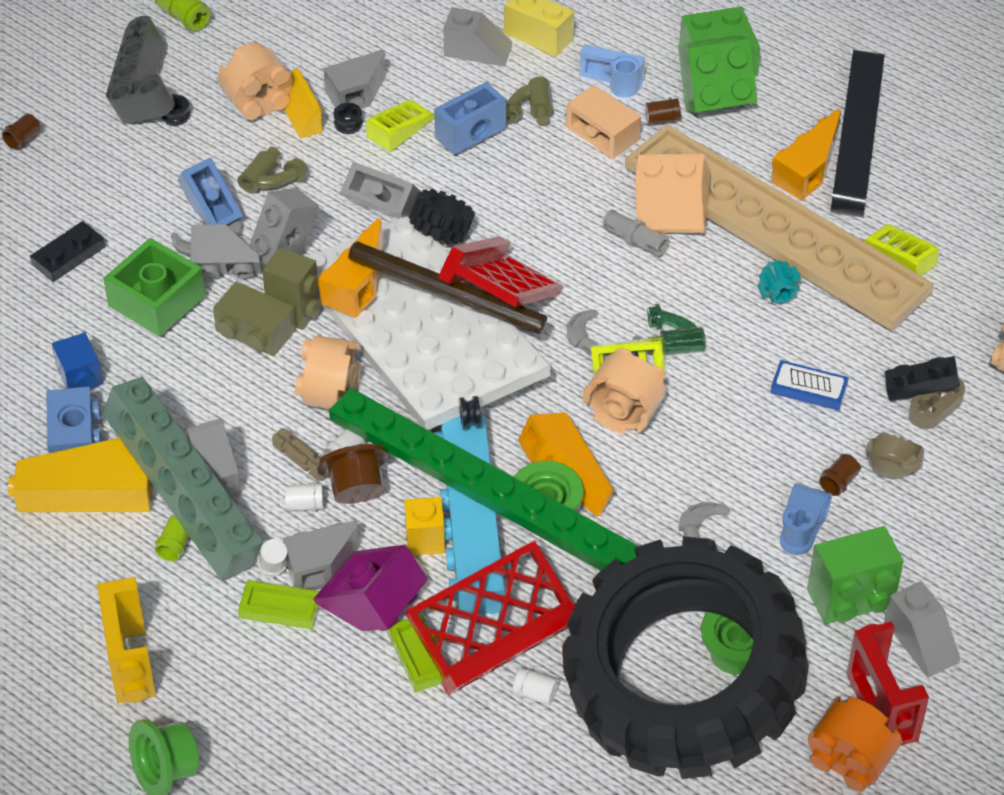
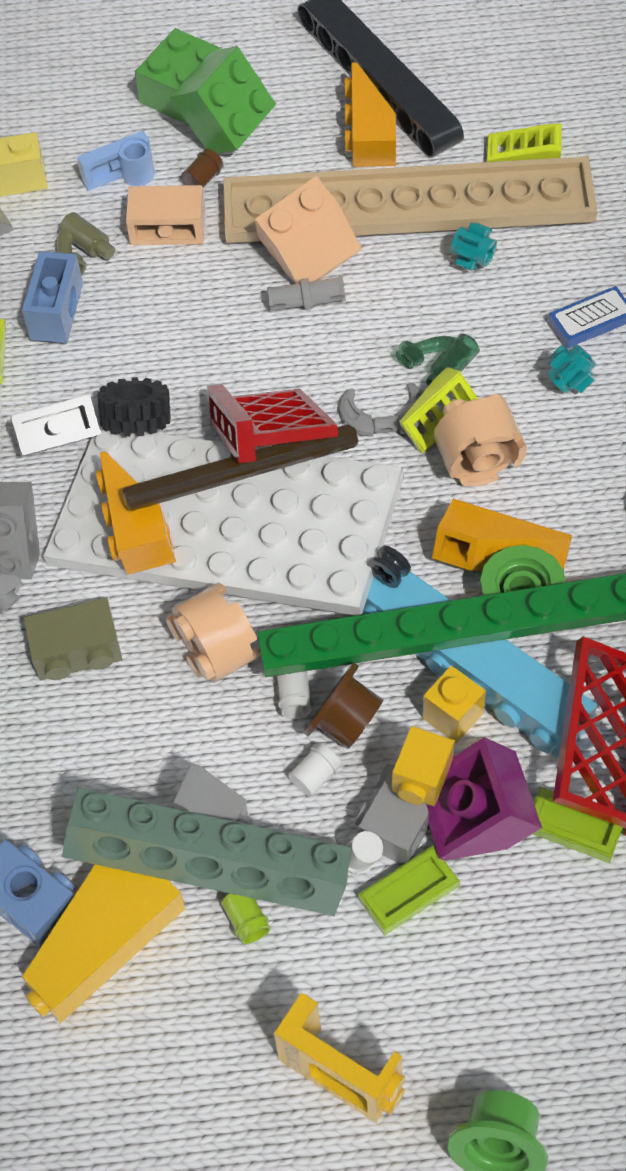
camera: 40 degrees left, 10 degrees up
(294, 281) = (85, 573): olive brick -> none
(297, 452) = (262, 731): dark tan axle -> none
(350, 531) = (422, 766): none -> yellow brick
(747, 401) = (571, 368): none -> teal gear

